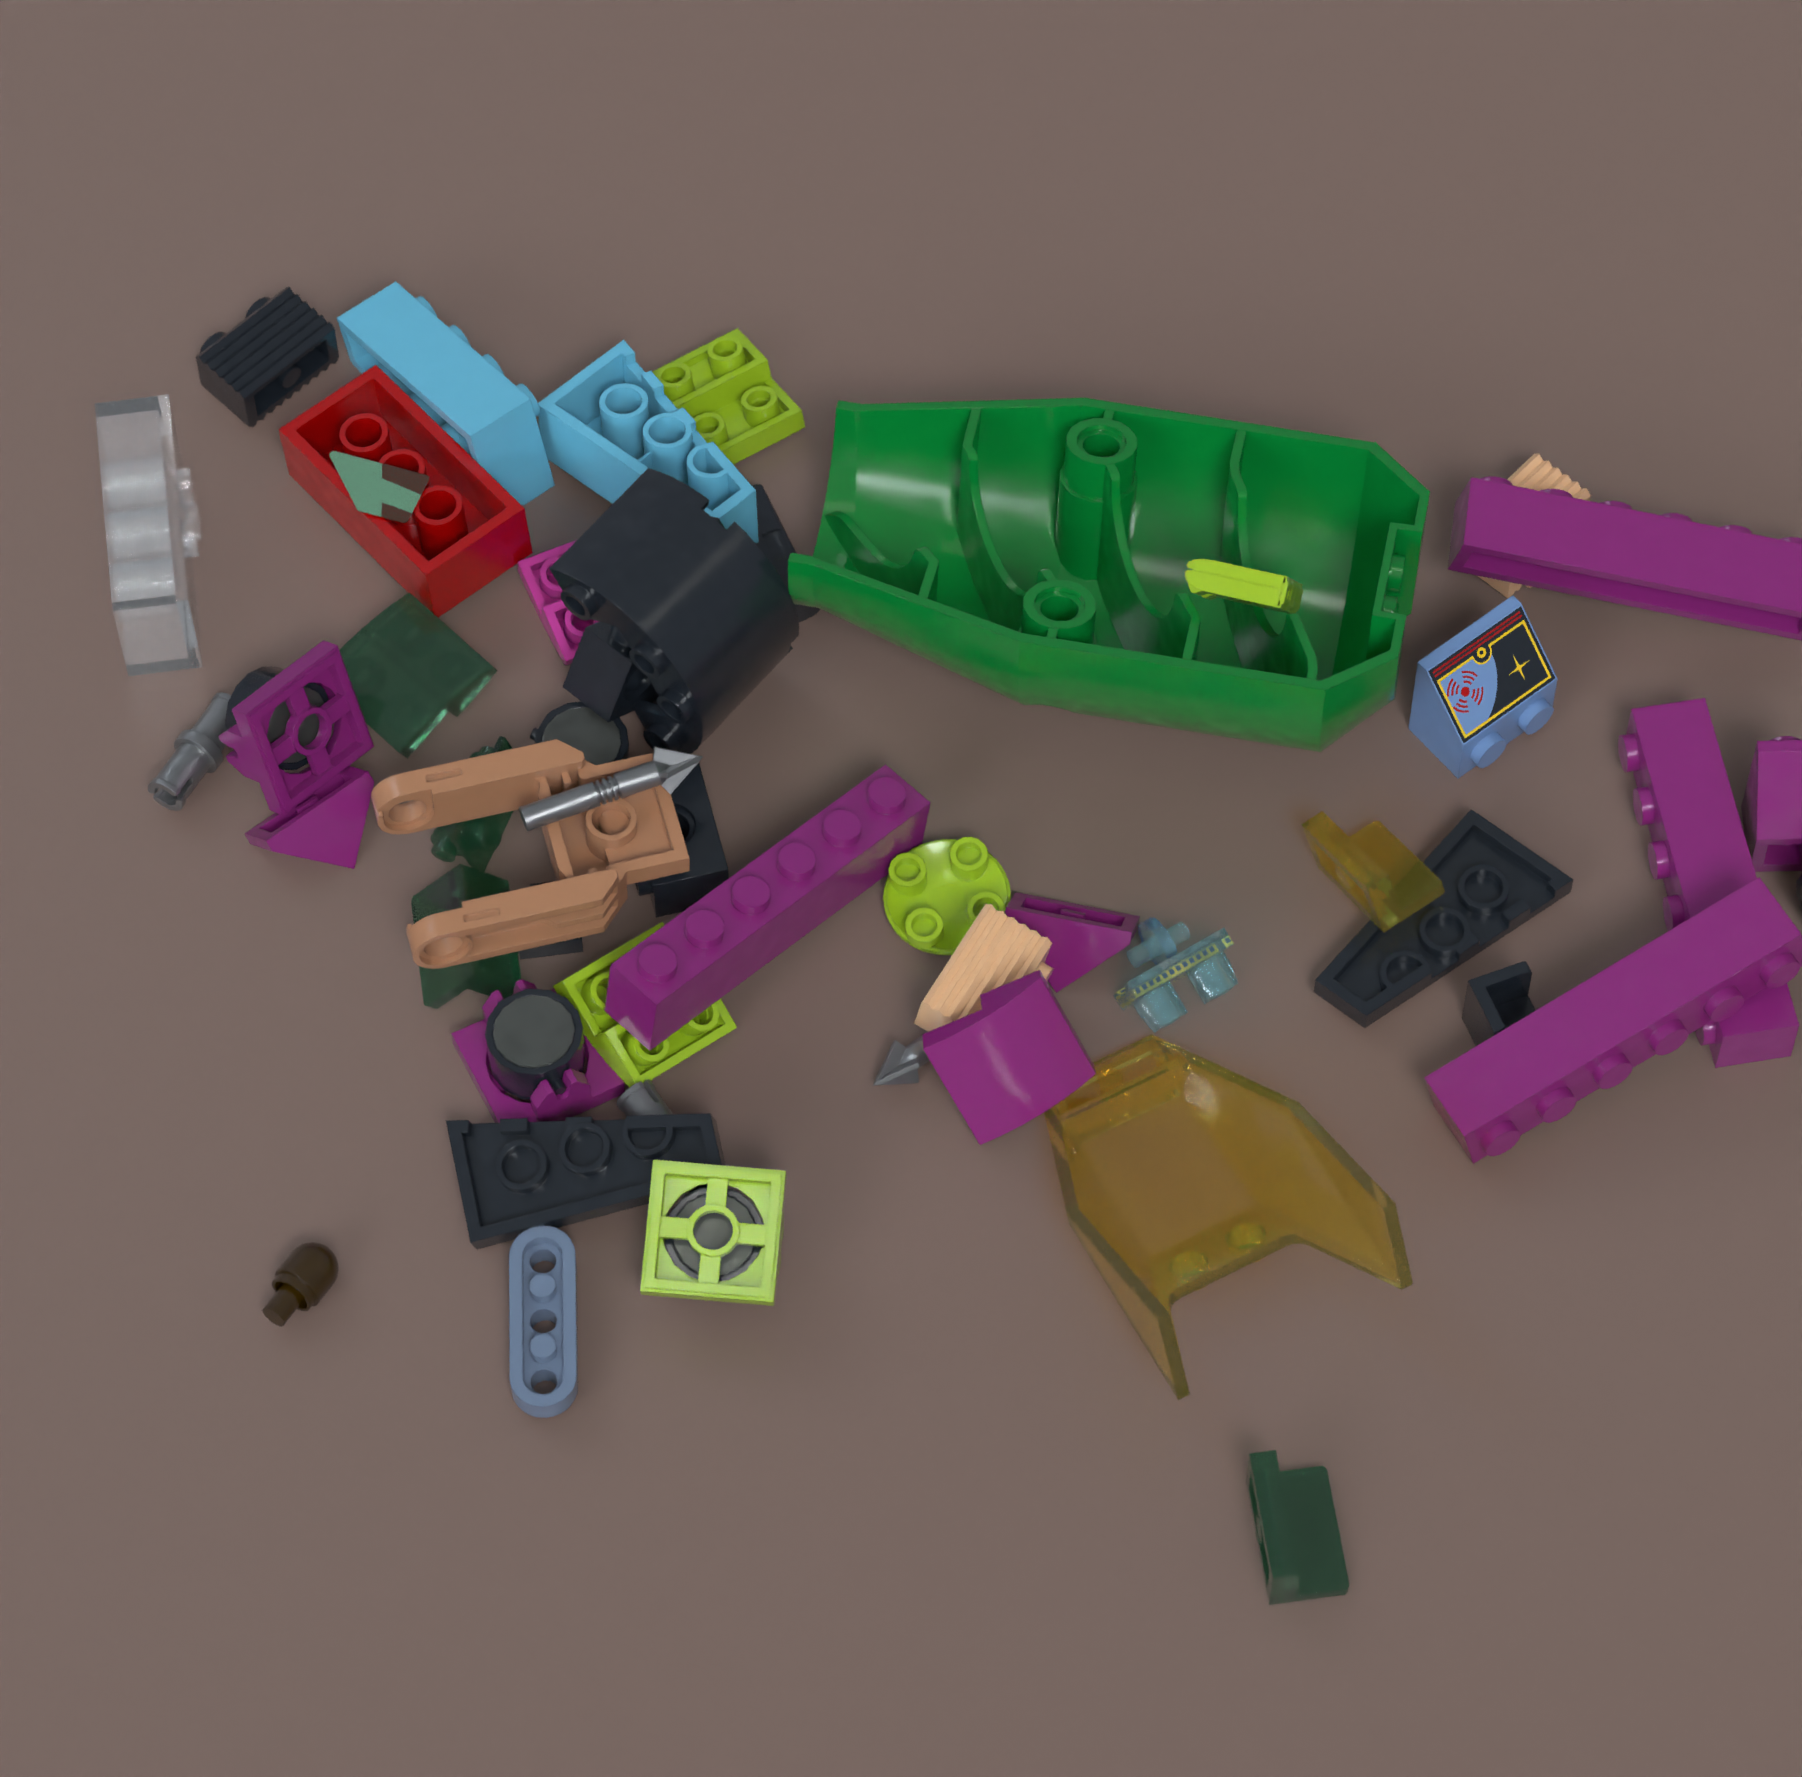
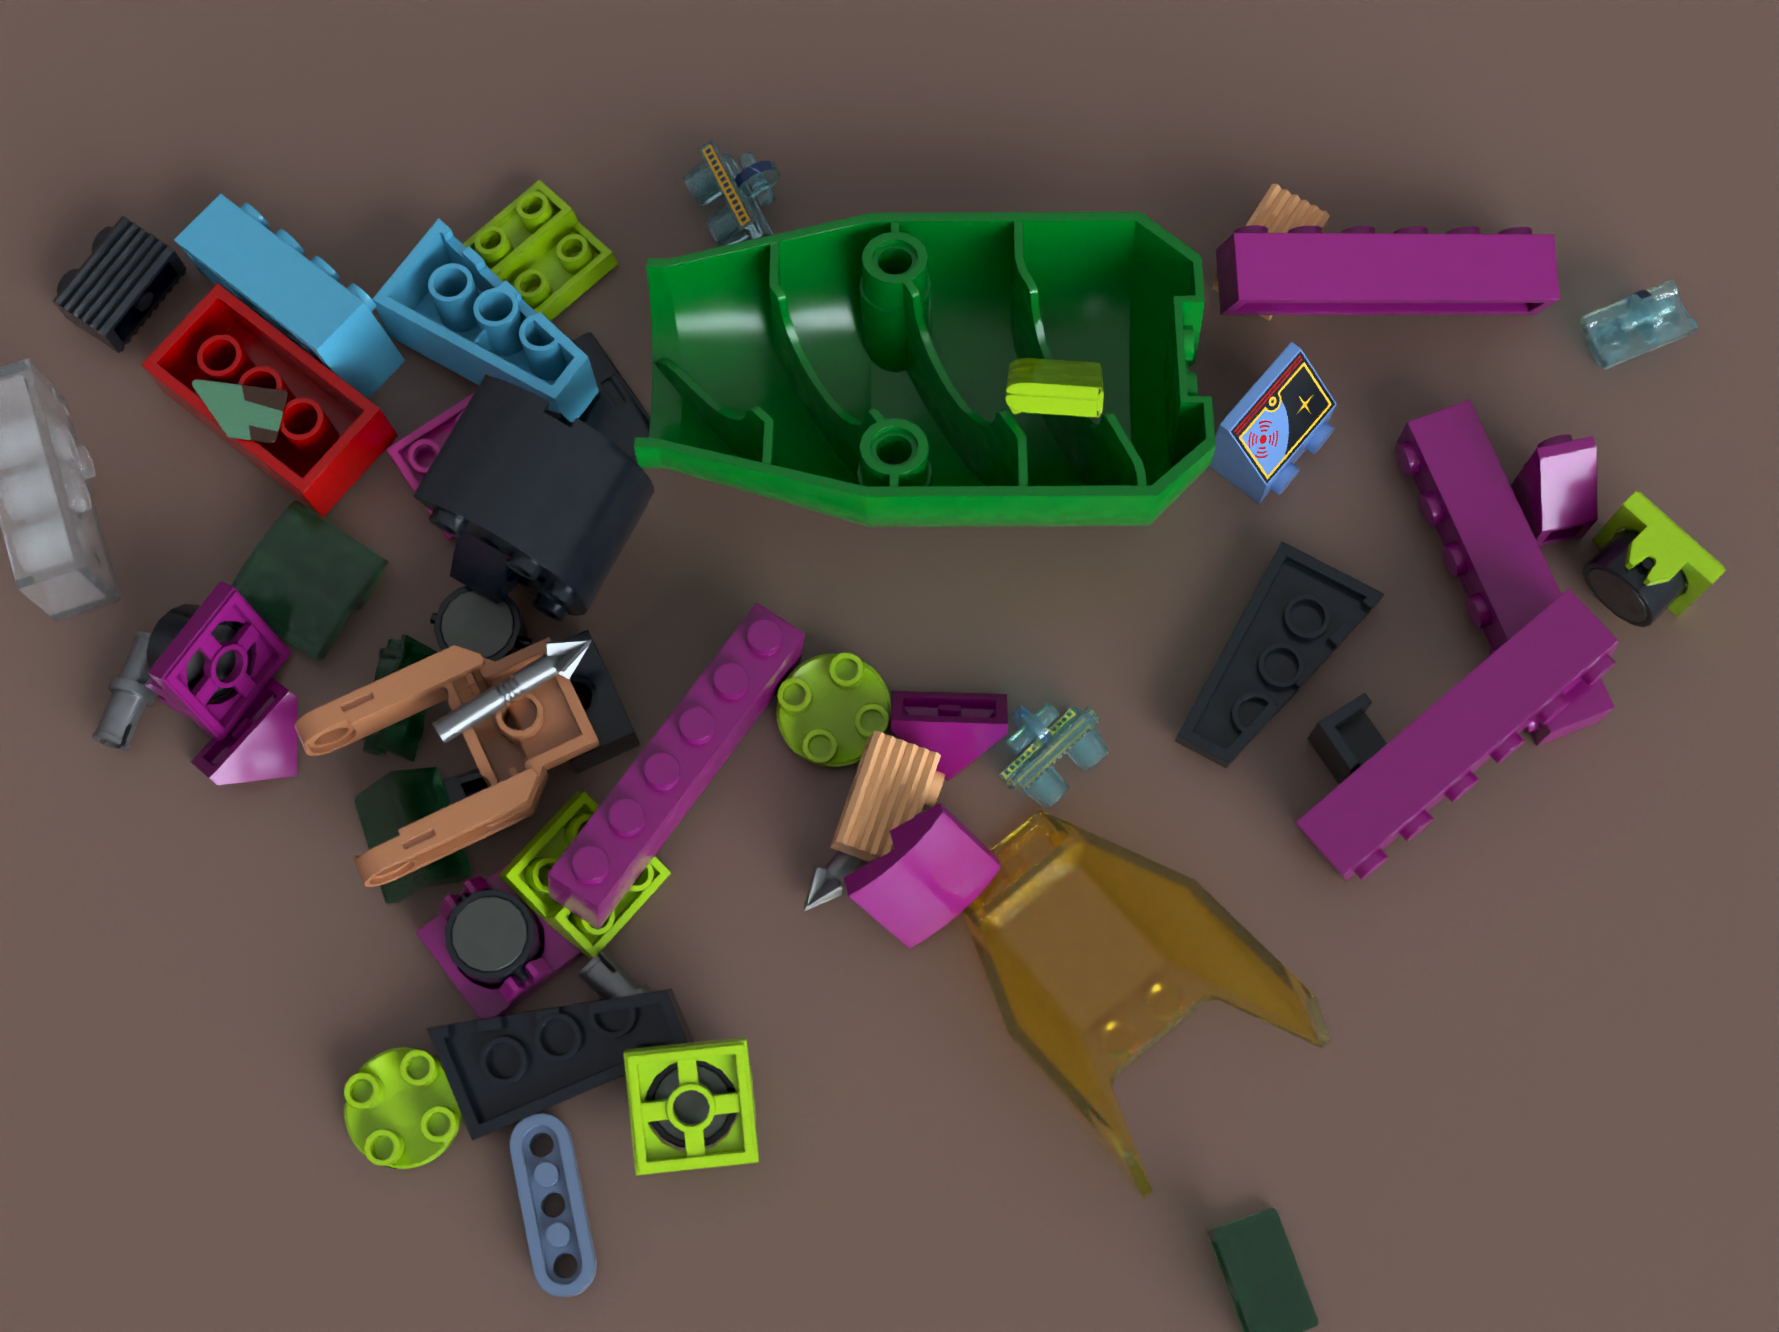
camera: 10 degrees left, 15 degrees up
(301, 1281) = (327, 1205): dark brown cylinder -> none
(401, 1201) = (401, 1108): none -> lime dish
(952, 368) = (721, 176): none -> clear light blue hips
(1372, 870) = (1210, 618): clear yellow panel -> none

